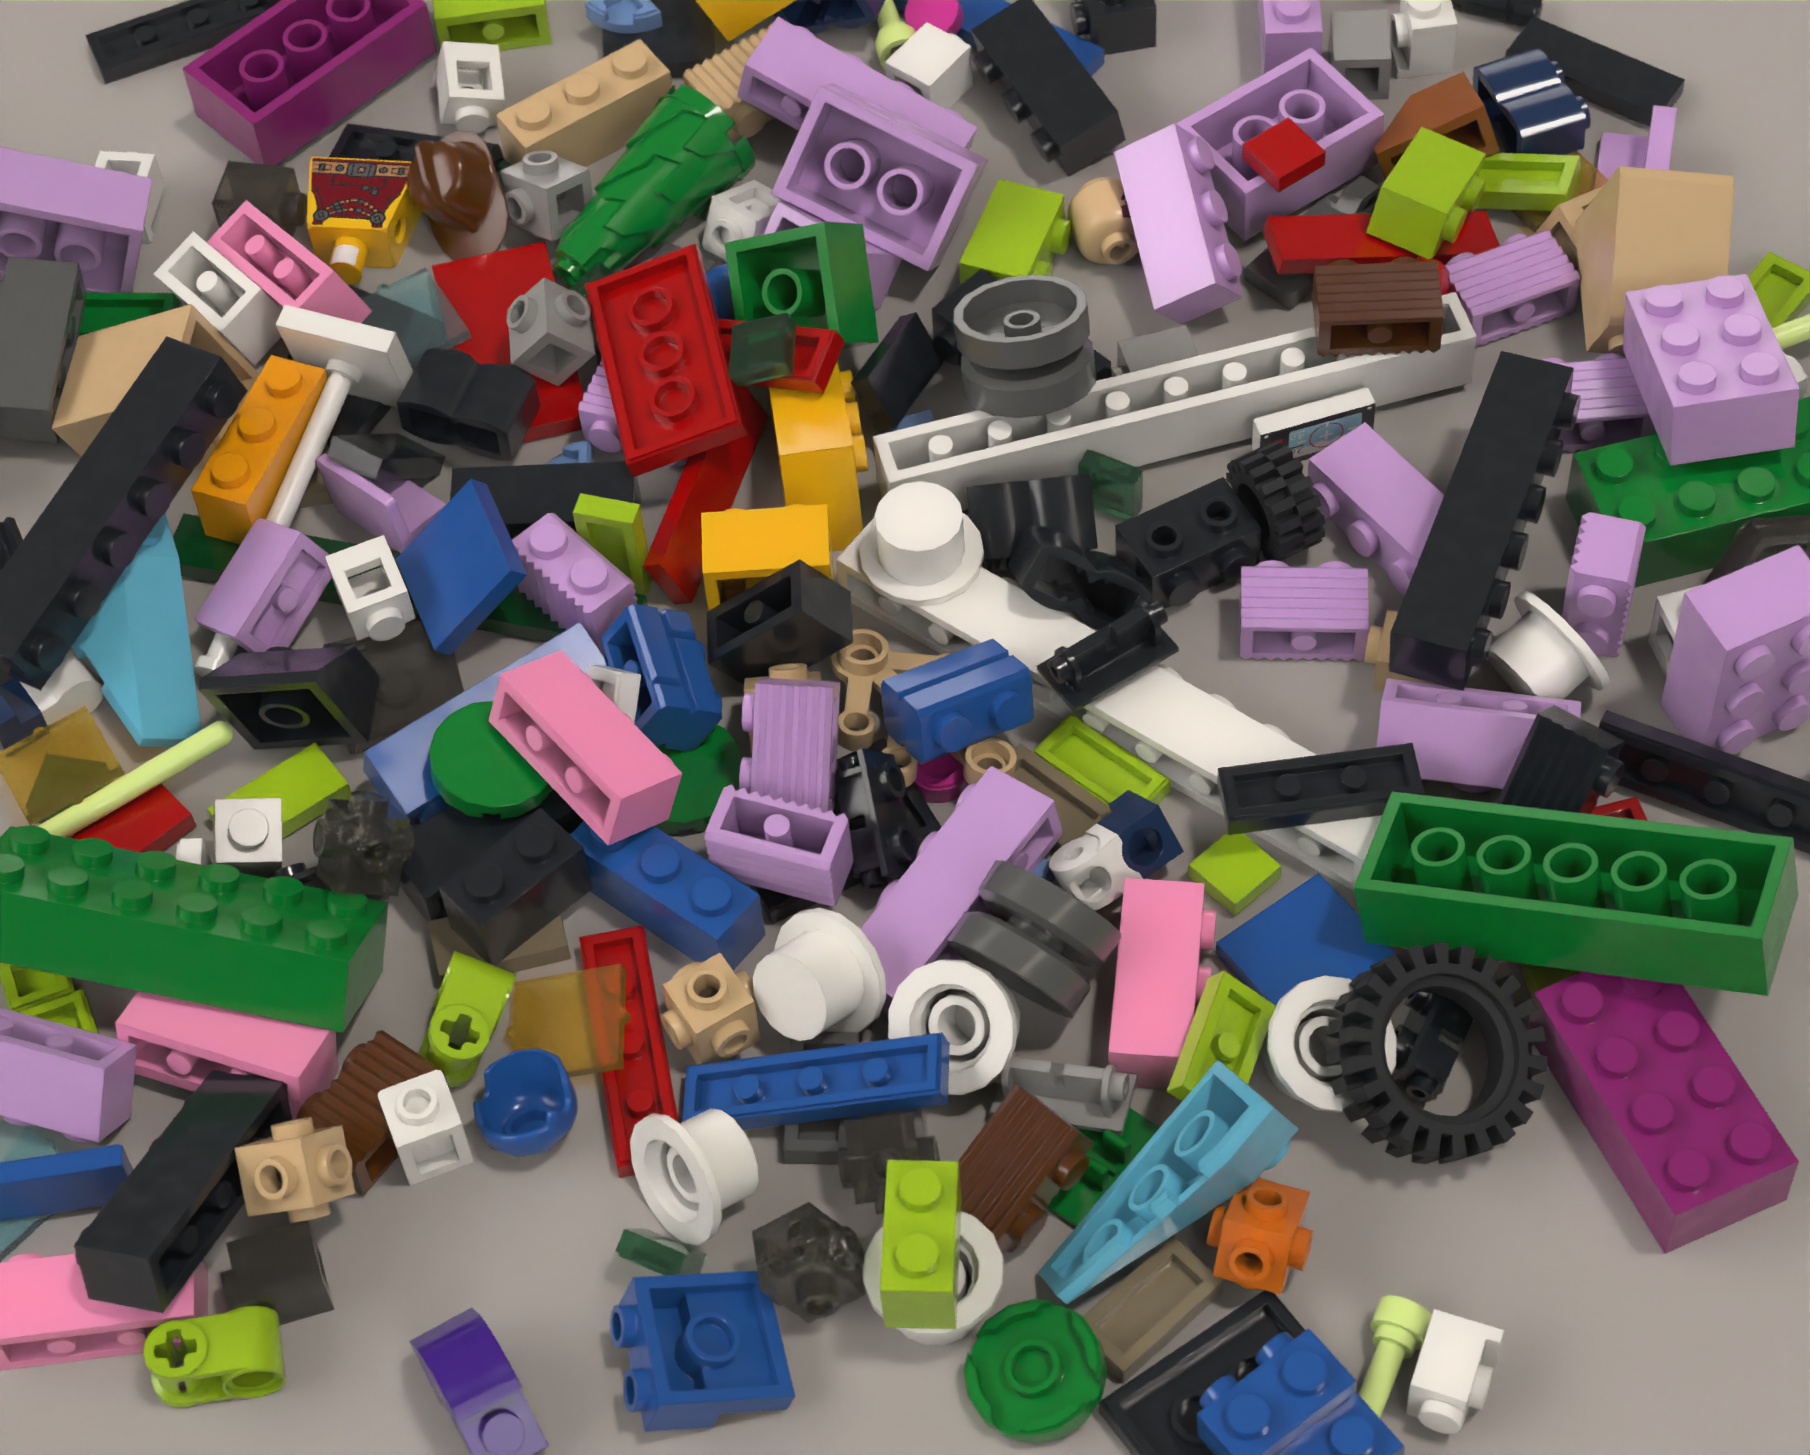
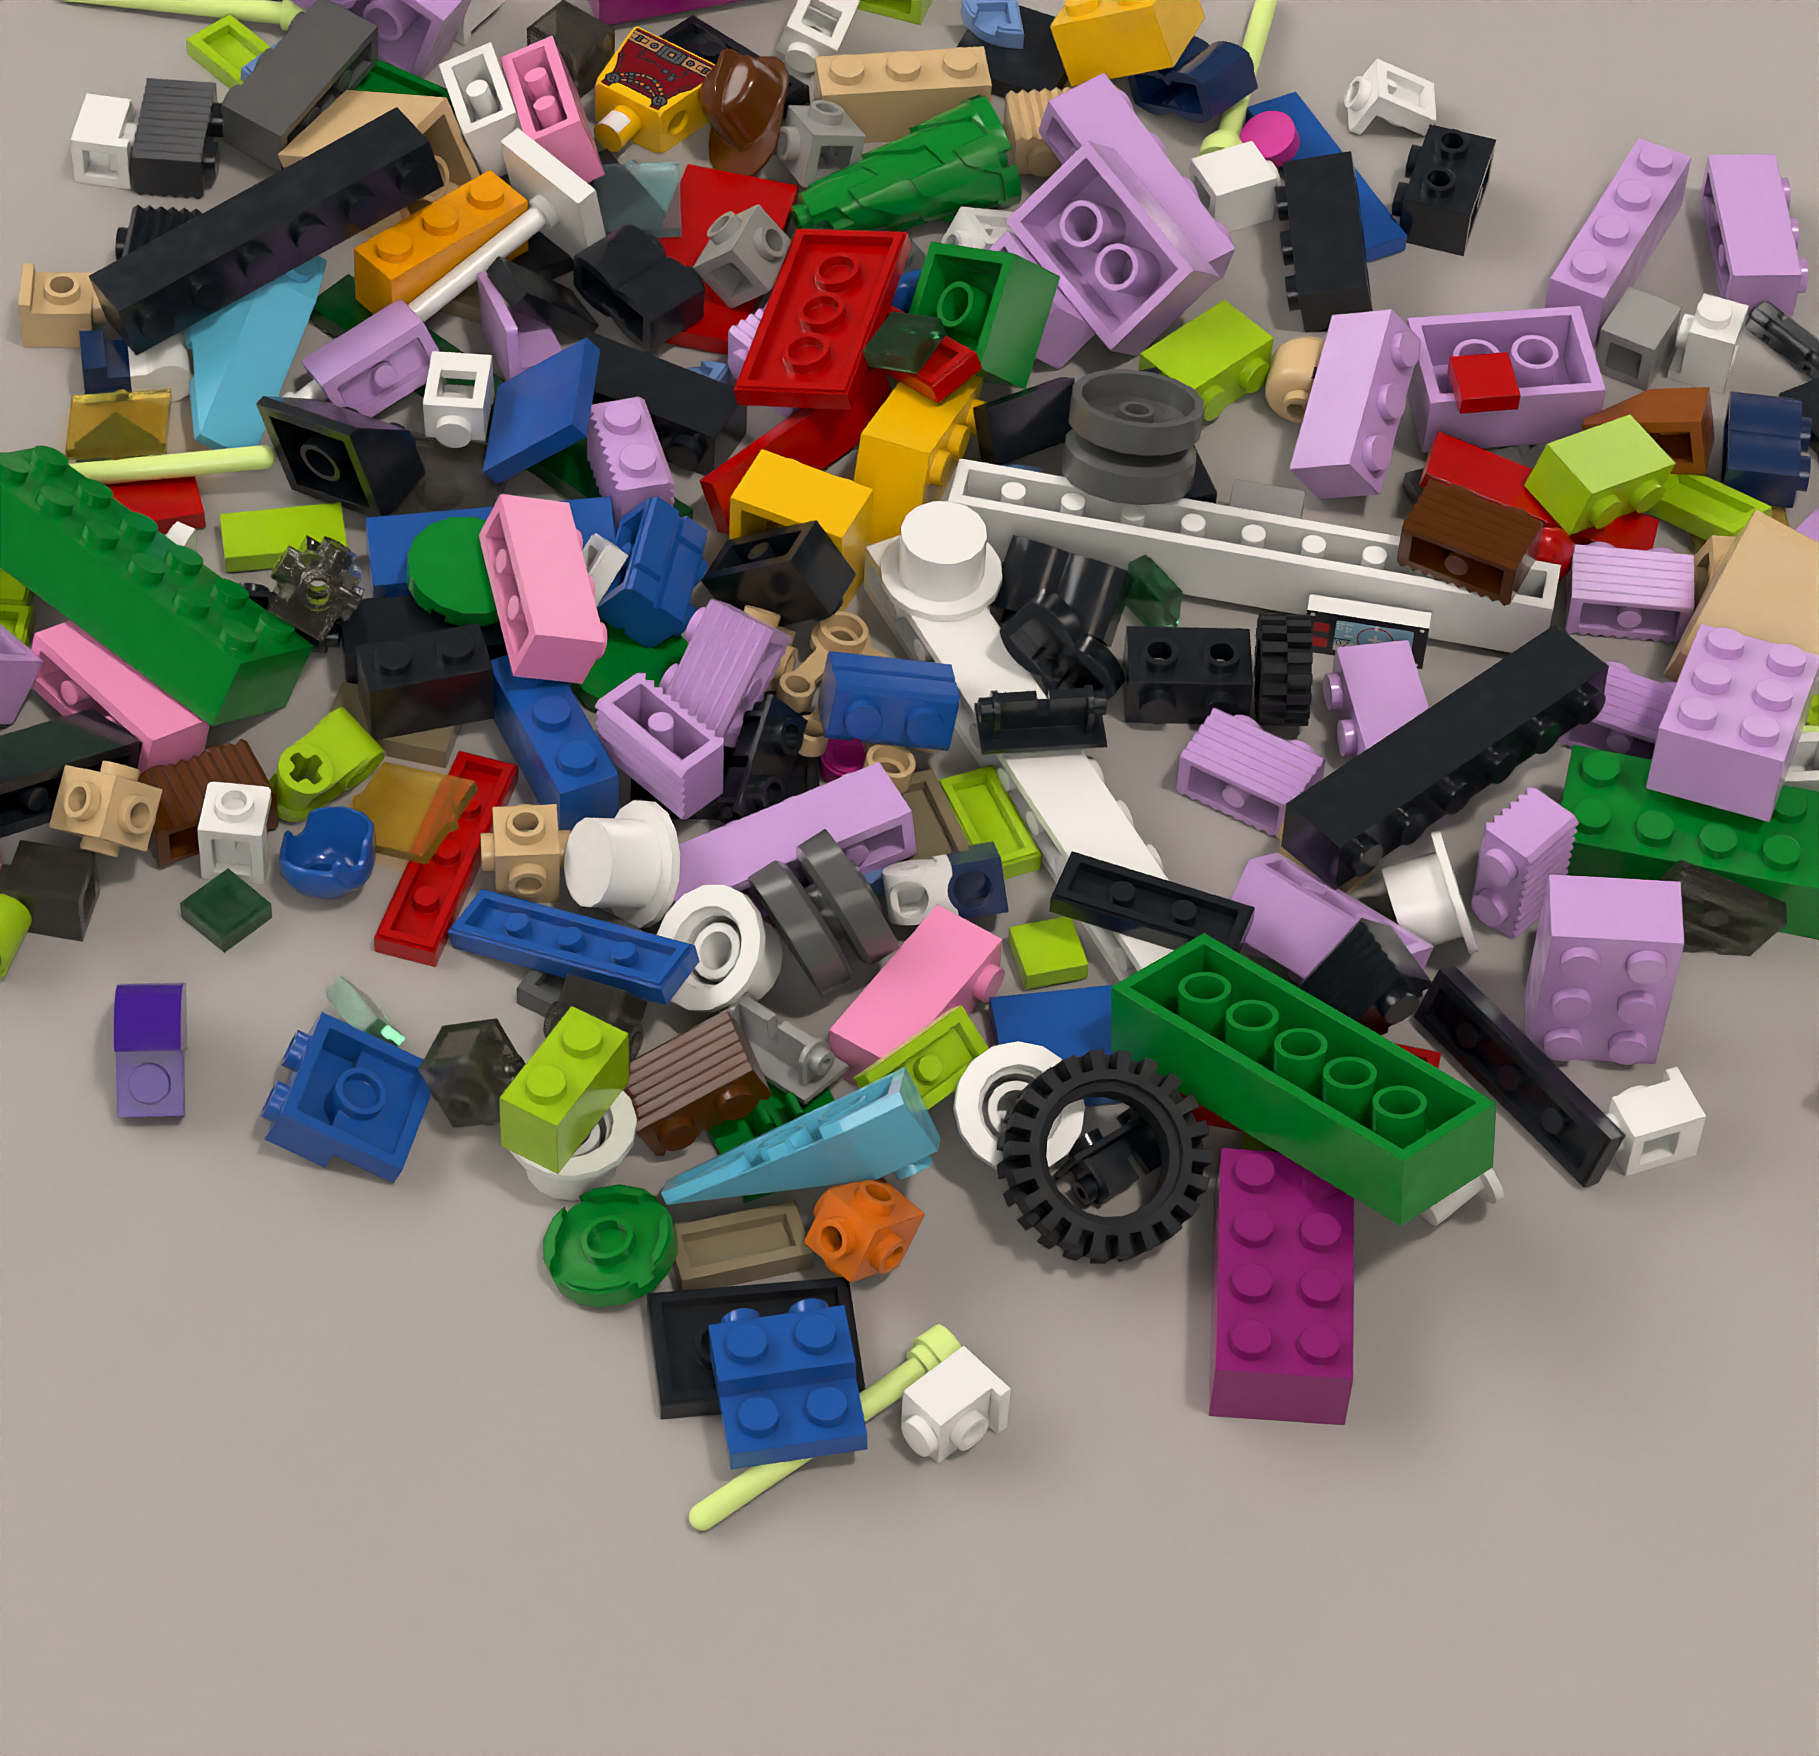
camera: 20 degrees right, 5 degrees down
(248, 834) = (234, 541): brick -> none
(455, 1208) = (226, 910): none -> clear green tile
(617, 533) = (687, 444): lime tile -> none
(692, 1170) = (429, 961): white piece -> none

